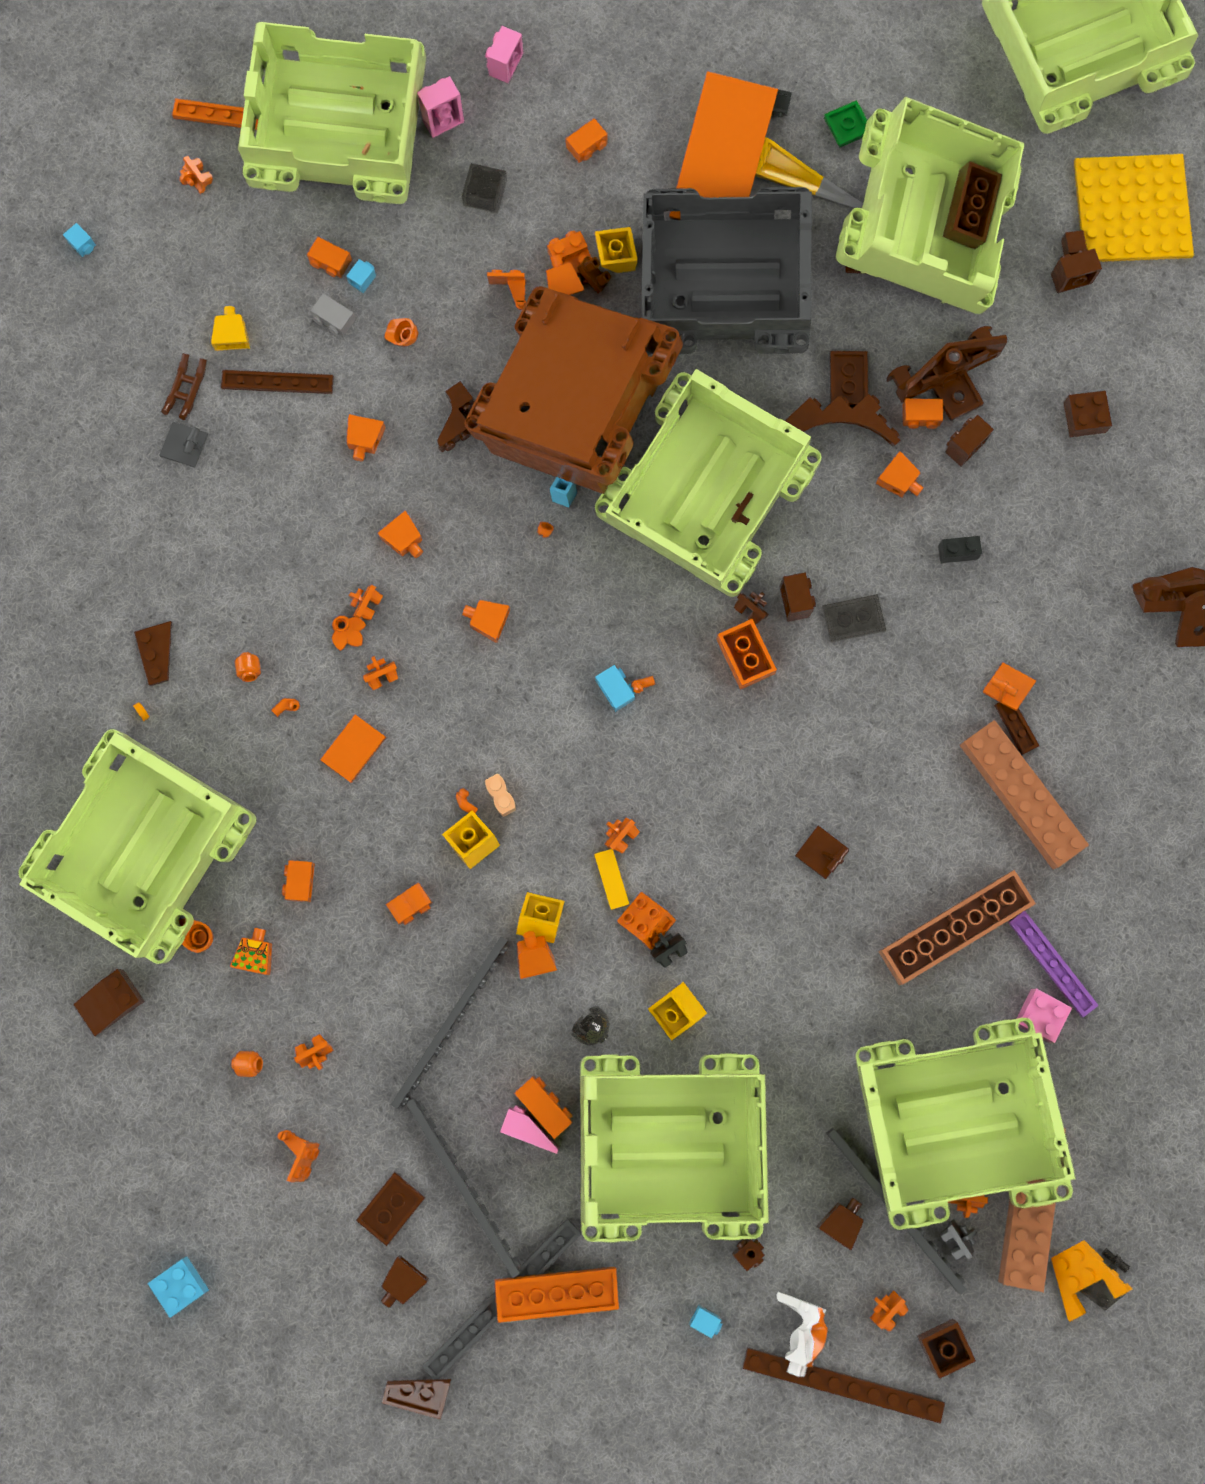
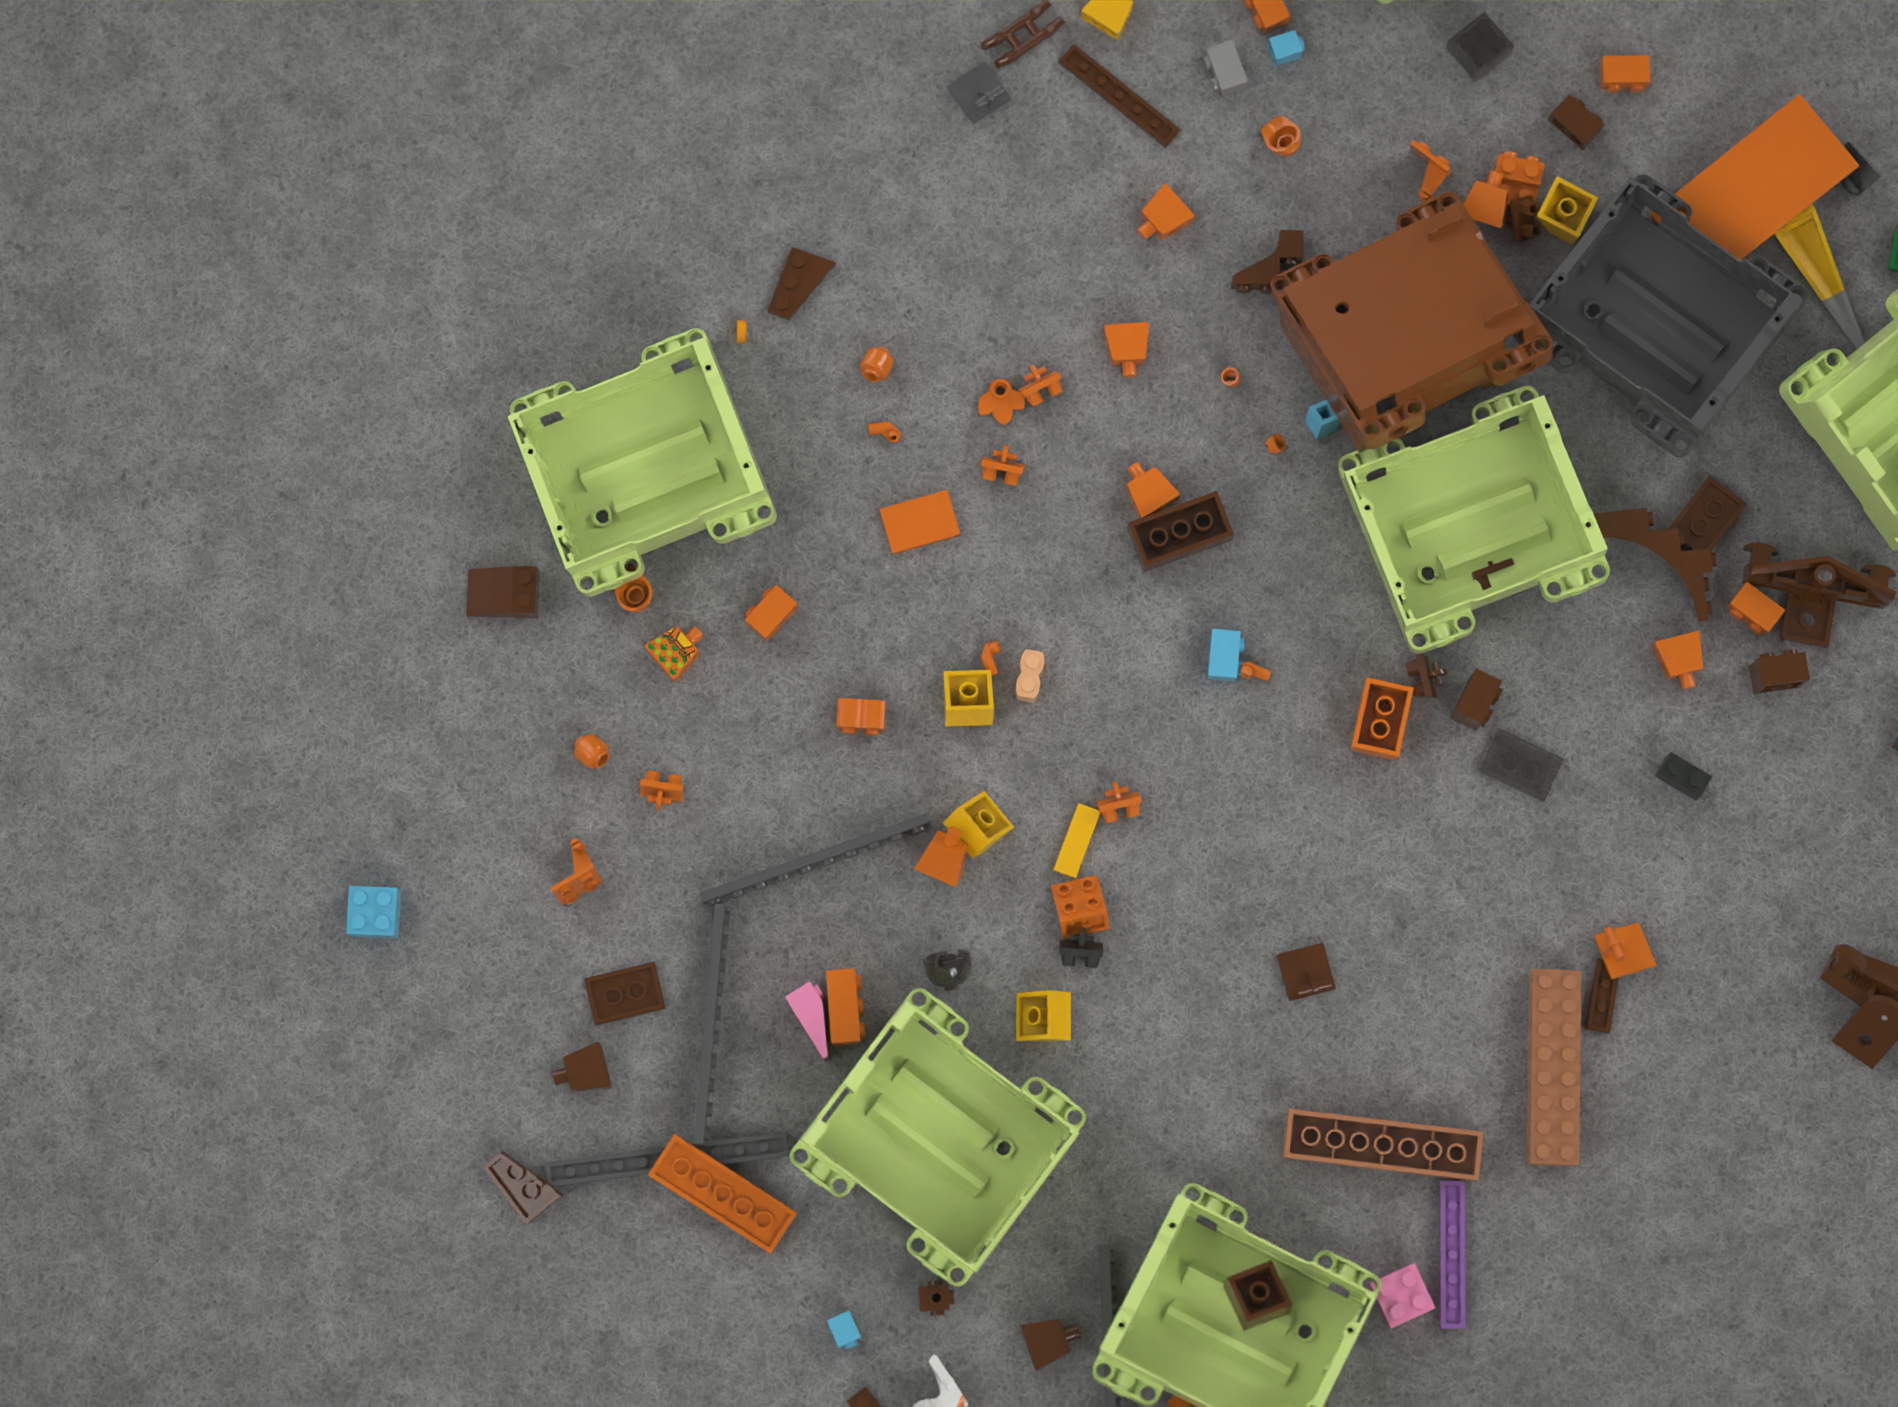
camera: 40 degrees right, 0 degrees up
(482, 505) = (1230, 373): none -> orange hinge
(527, 629) = (1180, 531): none -> reddish brown brick
(580, 192) = (1576, 121): none -> reddish brown brick
(958, 1090) = (1257, 1295): none -> reddish brown brick

